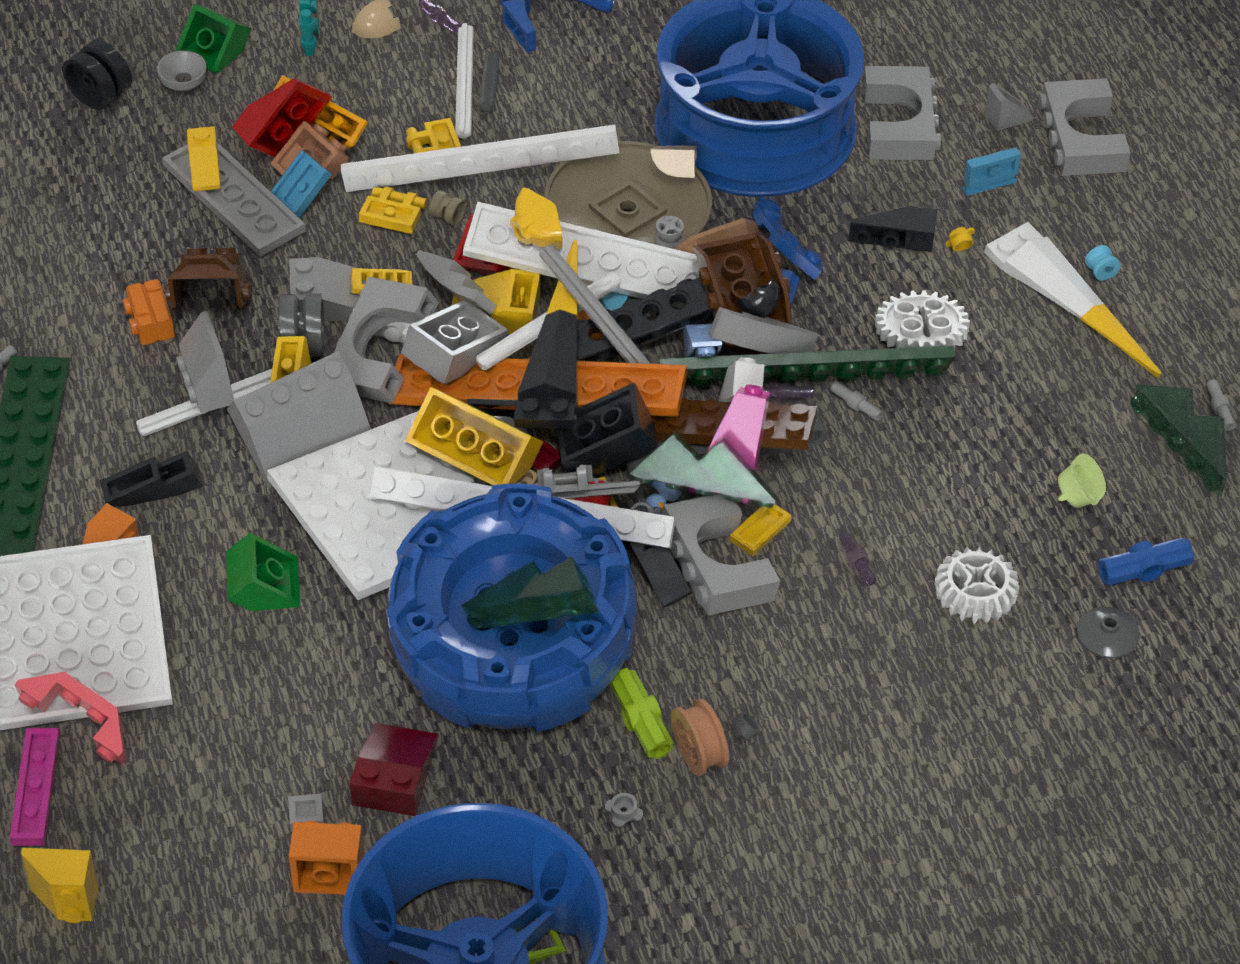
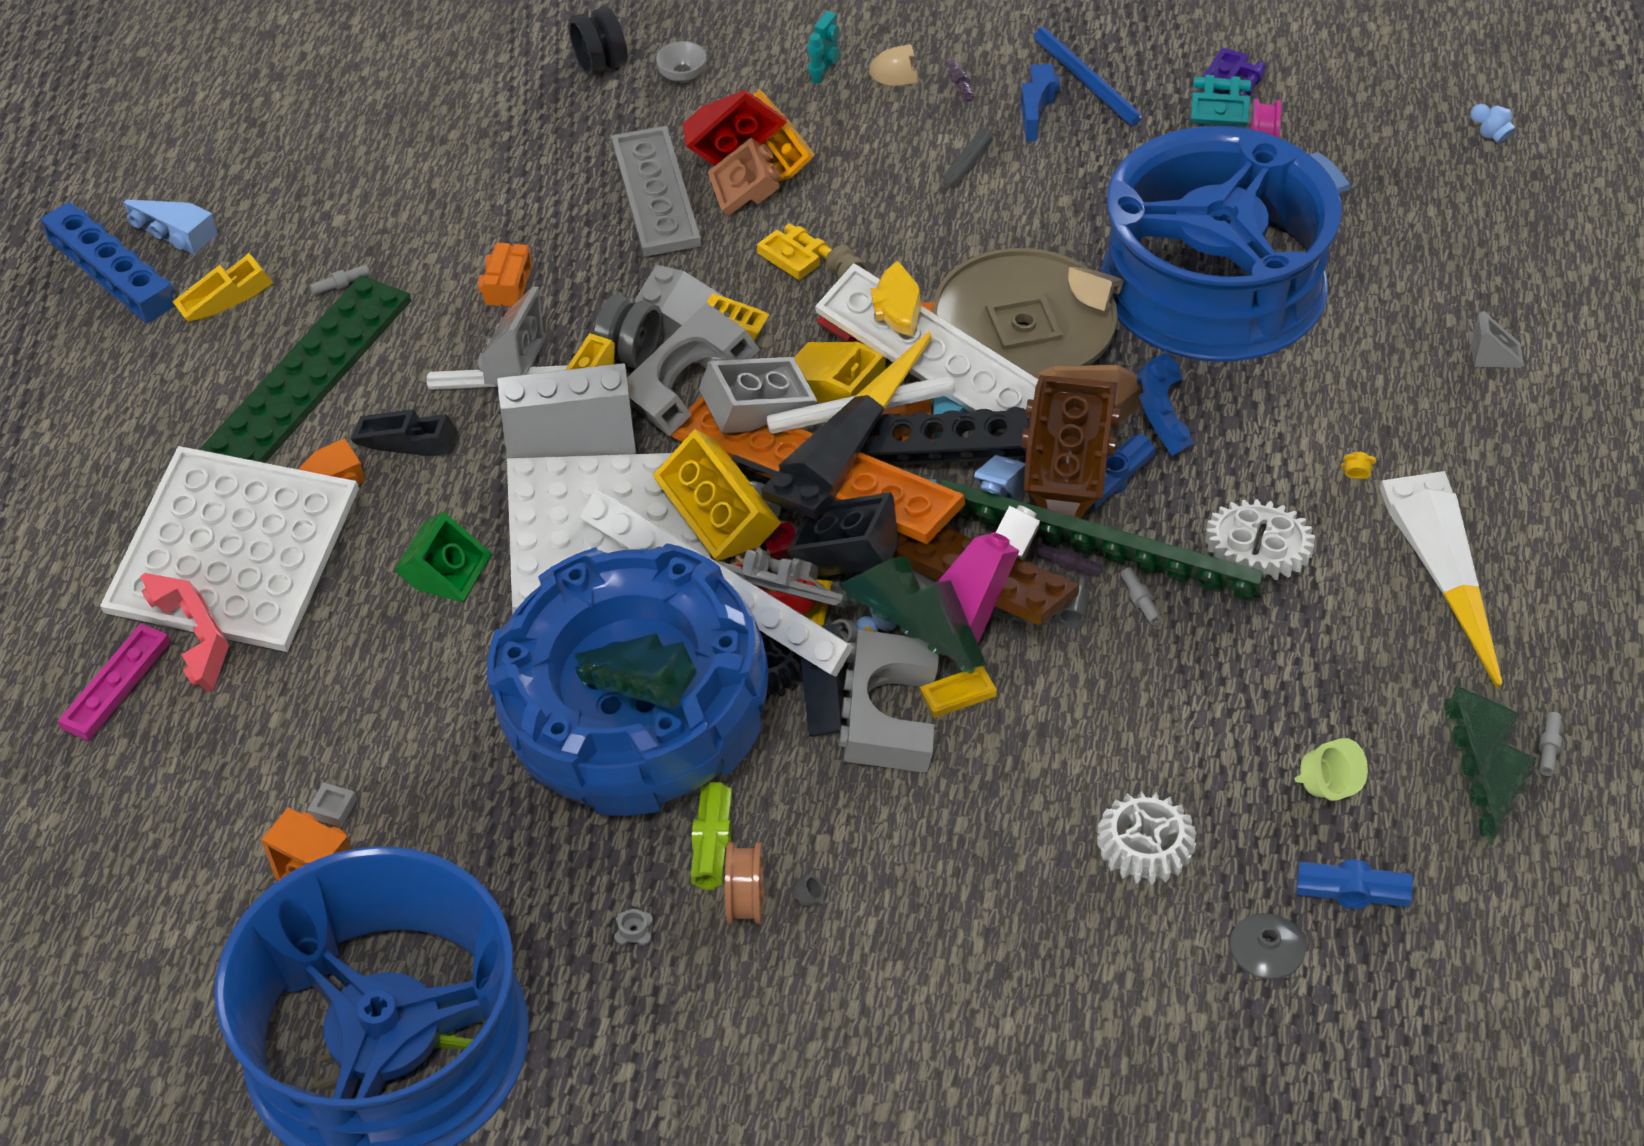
camera: 30 degrees right, 0 degrees up
(63, 881) = (69, 782): yellow slope -> none
(200, 265) = (593, 255): reddish brown slope -> none
(203, 158) = (641, 146): yellow slope -> none
(213, 37) = (730, 39): green slope -> none
(301, 183) = (718, 198): dark azure plate -> none
(392, 769) = (439, 793): dark red slope -> none
(437, 133) = (884, 201): yellow plate -> none
(456, 280) = (800, 338): light grey slope -> none
(464, 81) = (943, 150): white axle -> none
(480, 158) = (904, 226): white plate -> none
(591, 305) = (903, 403): light grey axle -> none
(669, 231) = (1038, 355): light grey wheel -> none
(761, 333) = (1059, 489): light grey slope -> none
(764, 302) = (1076, 454): black hair -> none
(858, 559) = (1038, 762): clear purple bar -> none
(898, 228) = (1297, 432): black slope -> none
(913, 89) = (1375, 344): light grey arch -> none
(991, 171) = (1433, 404): dark azure plate -> none
(1076, 151) = (1548, 415): light grey arch -> none
(1102, 262) = (1503, 542): medium azure wheel -> none

